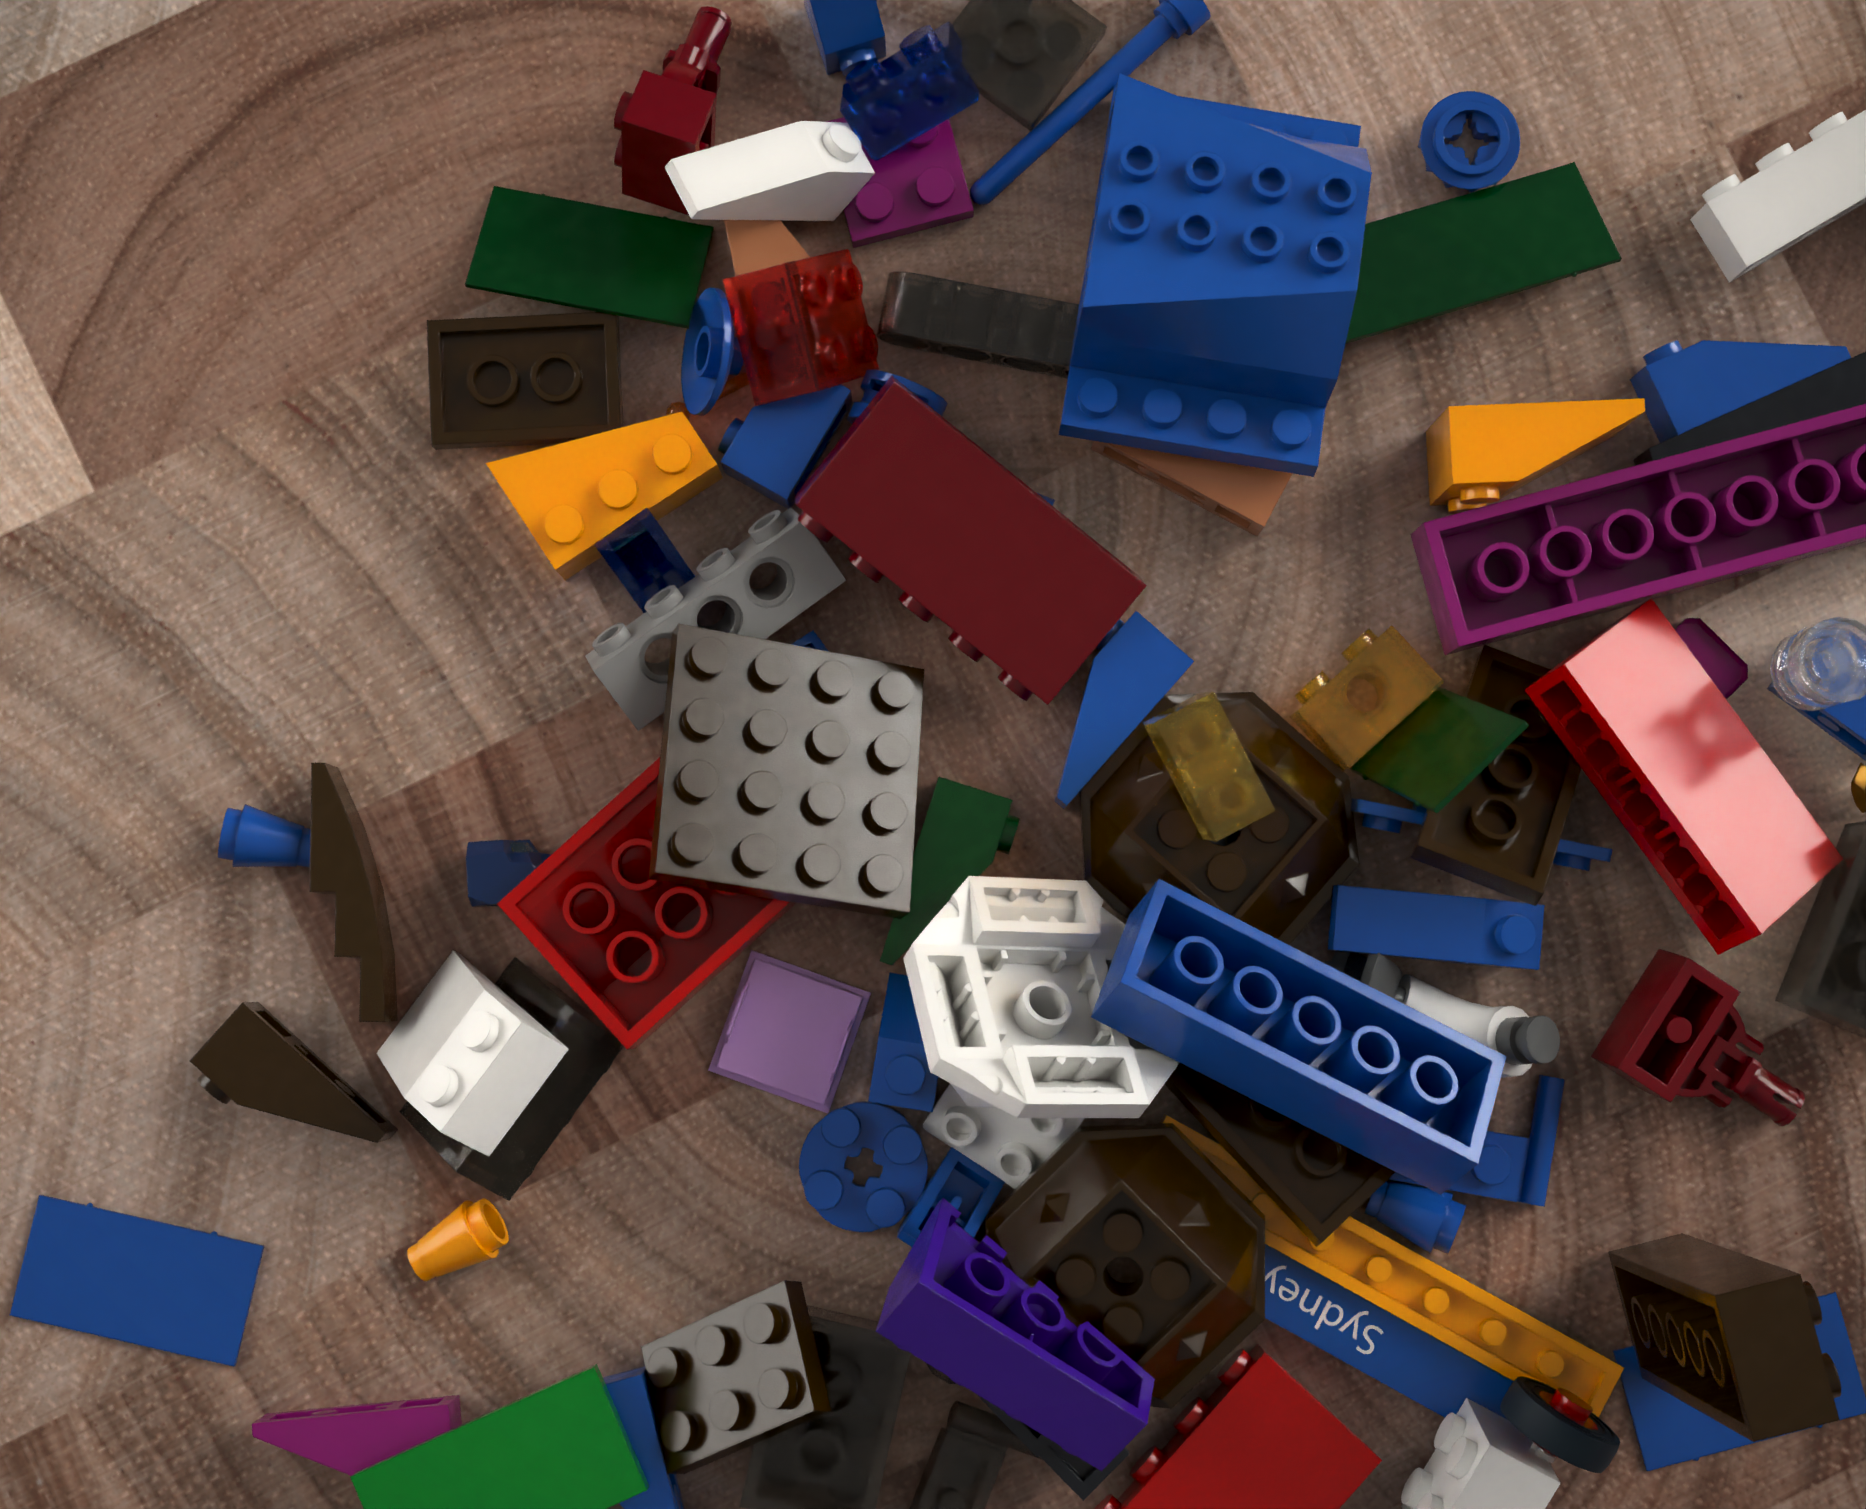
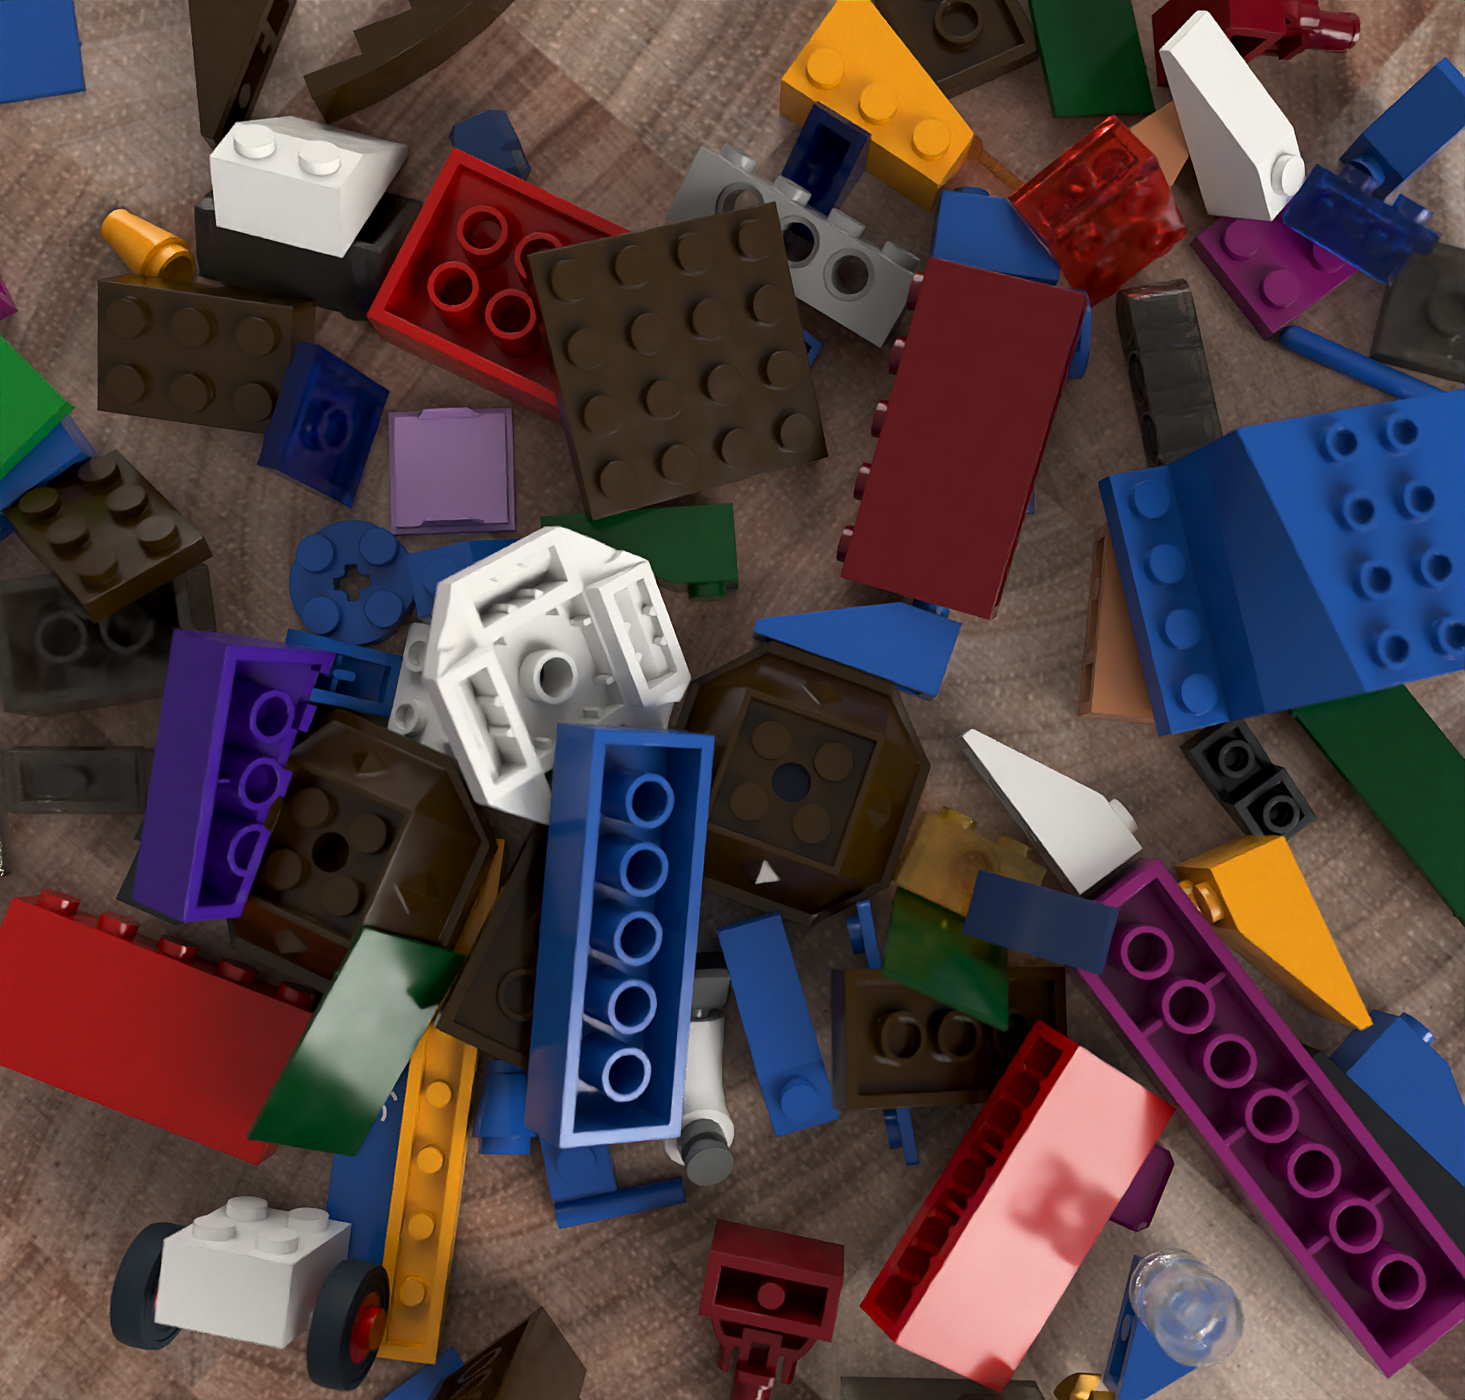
camera: 70 degrees right, 0 degrees up
(594, 1219) = (196, 350): none -> dark brown brick
(709, 352) = (1039, 147): blue dish -> none
(710, 1132) = (323, 425): none -> clear blue plate
(1209, 766) = (839, 740): clear yellow brick -> none
(1308, 1320) = (356, 1043): none -> window
(1354, 589) = (1063, 820): none -> white slope
(1384, 407) = (1246, 782): none -> black slope
(1439, 652) = (1041, 922): none -> dark blue slope

